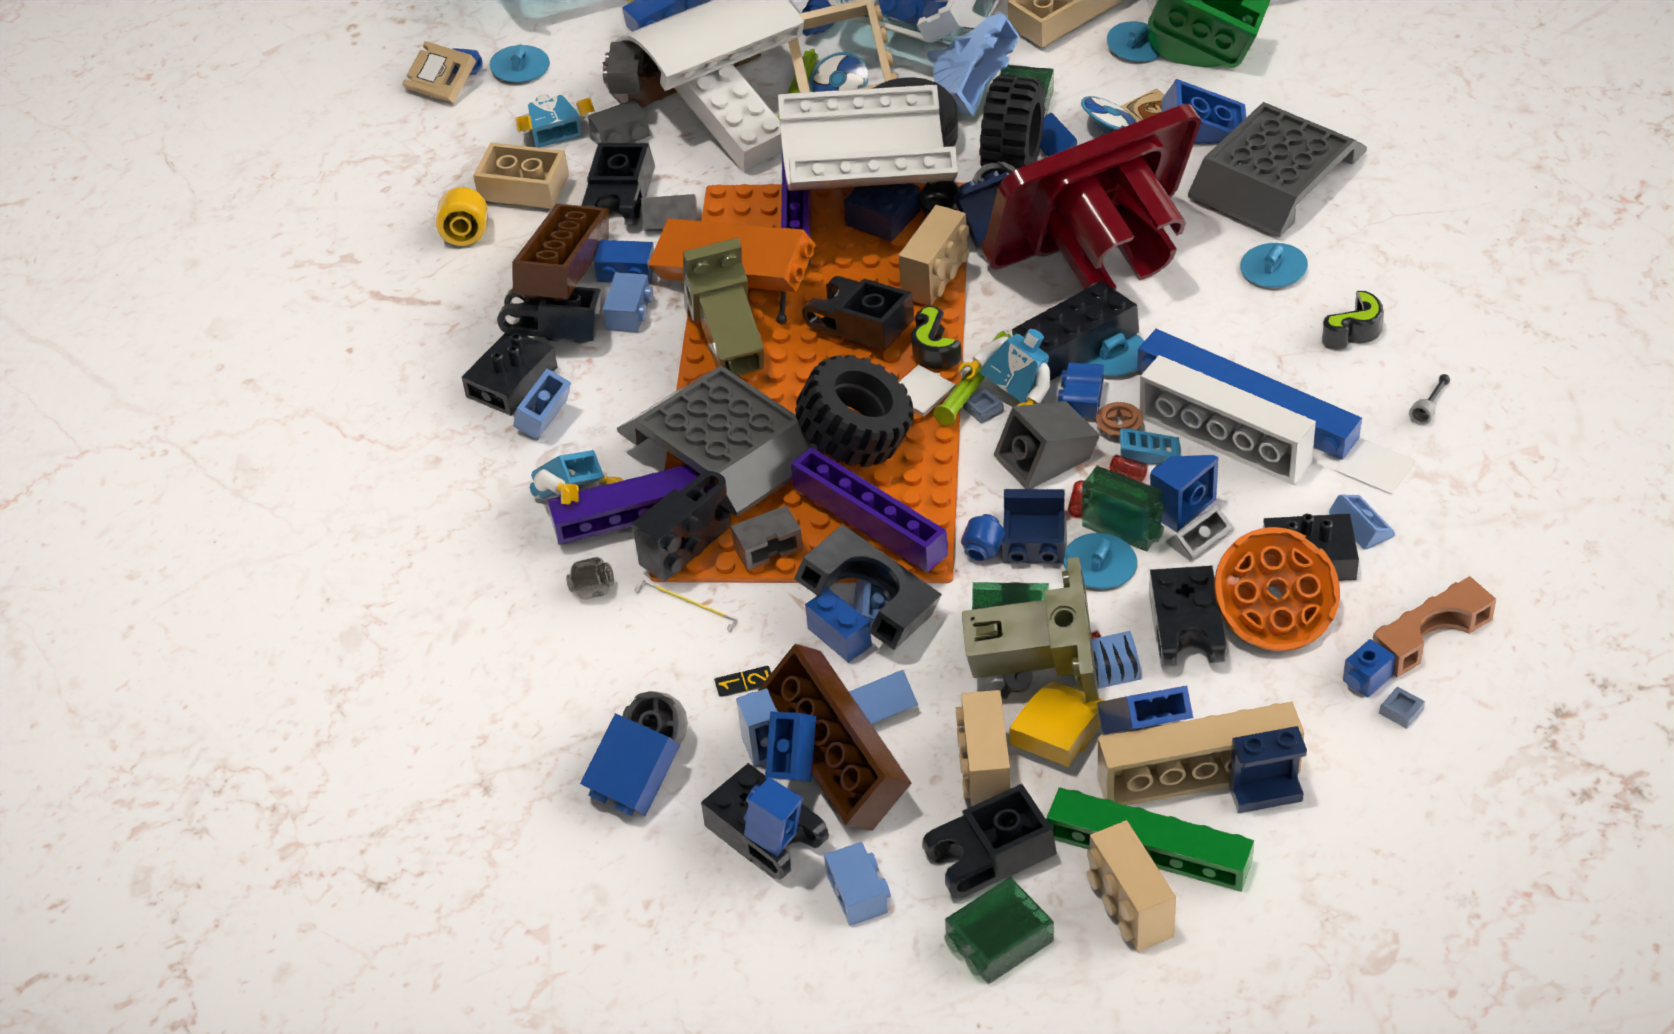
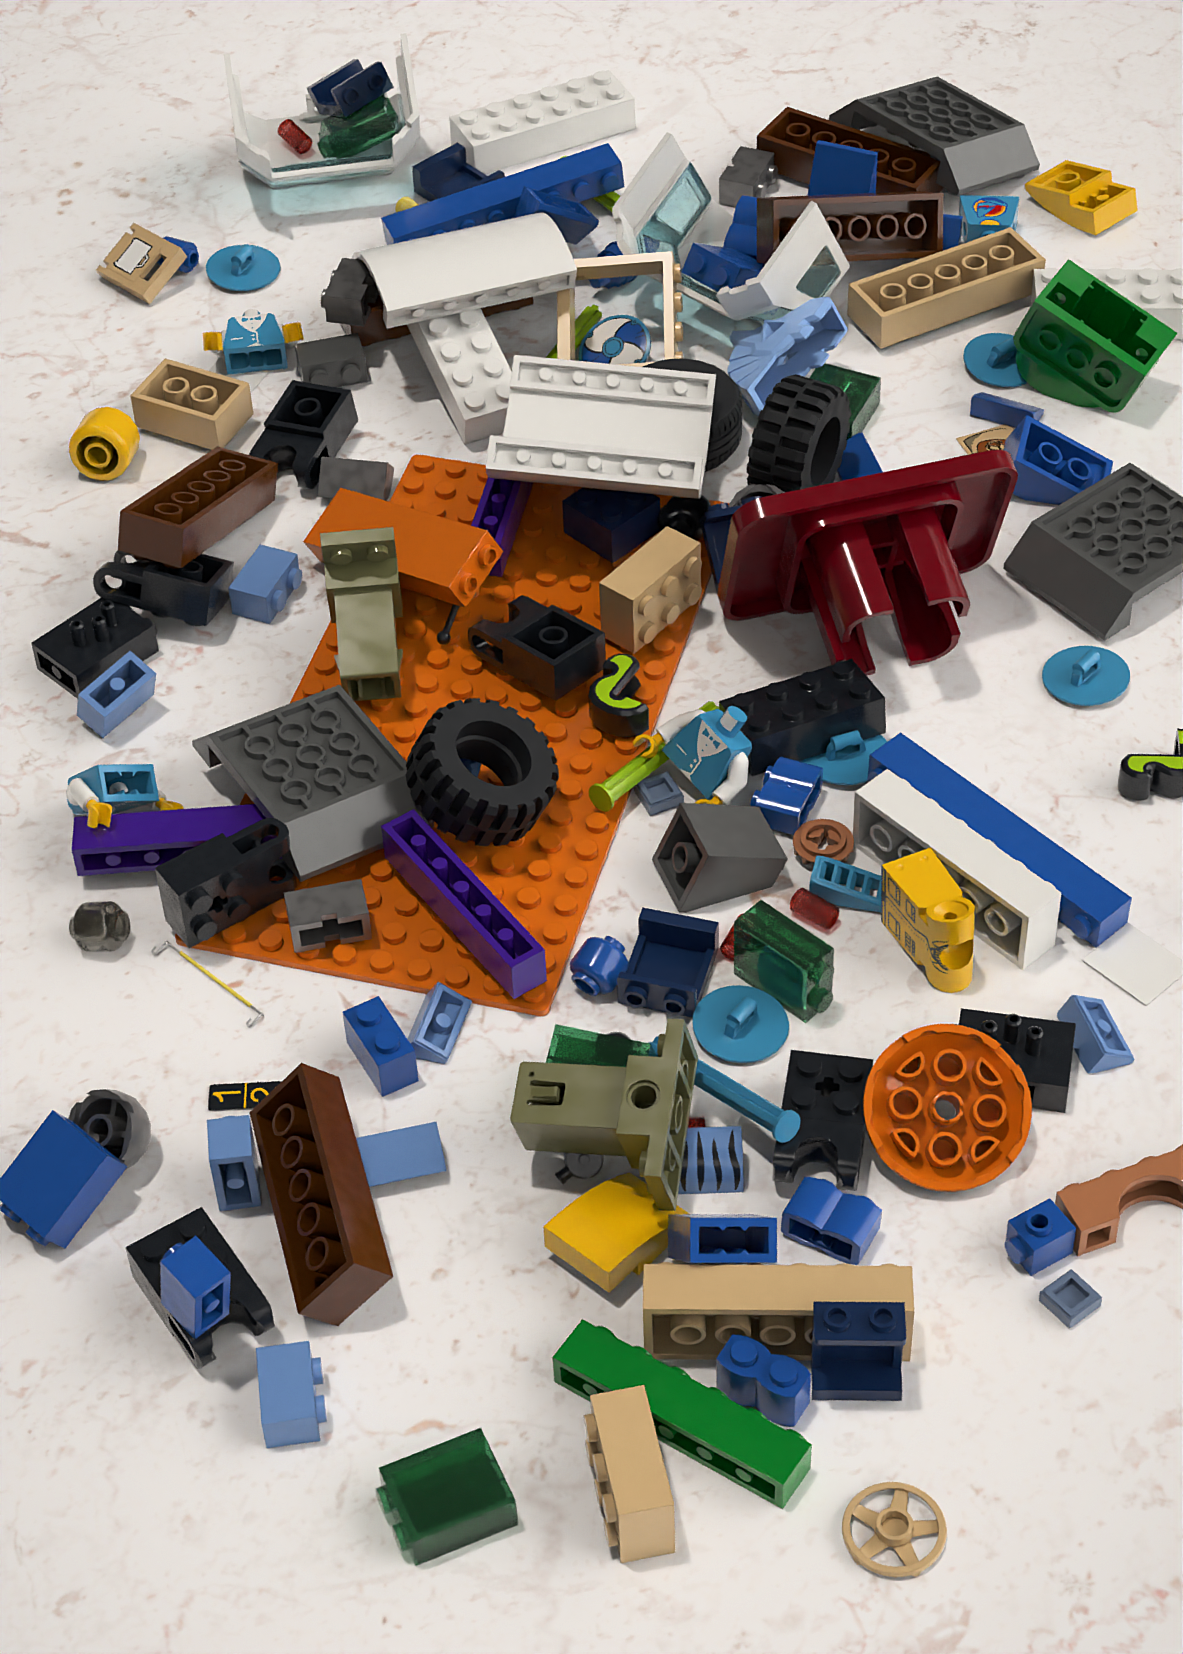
camera: 10 degrees right, 0 degrees up
(622, 258) = (277, 528): blue brick -> none
(790, 746) = (255, 1197): blue brick -> none
(850, 556) = (417, 960): black arch -> none
(926, 389) = (587, 760): white piece -> none
(984, 746) = (502, 1251): tan brick -> none
(991, 841) = (473, 1375): black brick -> none
(1106, 113) = (930, 441): shield -> none
(1128, 612) = (781, 1123): none -> dark azure axle
(1150, 79) = (1002, 409): none -> blue slope
(1186, 487) = (872, 949): blue slope -> none
(1201, 533) = (881, 1012): flat silver slope -> none
(1203, 803) = (763, 1380): none -> blue brick
(1215, 684) = (831, 1220): none -> blue brick
(1238, 455) = (929, 918): none -> yellow piece
(1326, 888) = (894, 1529): none -> tan wheel

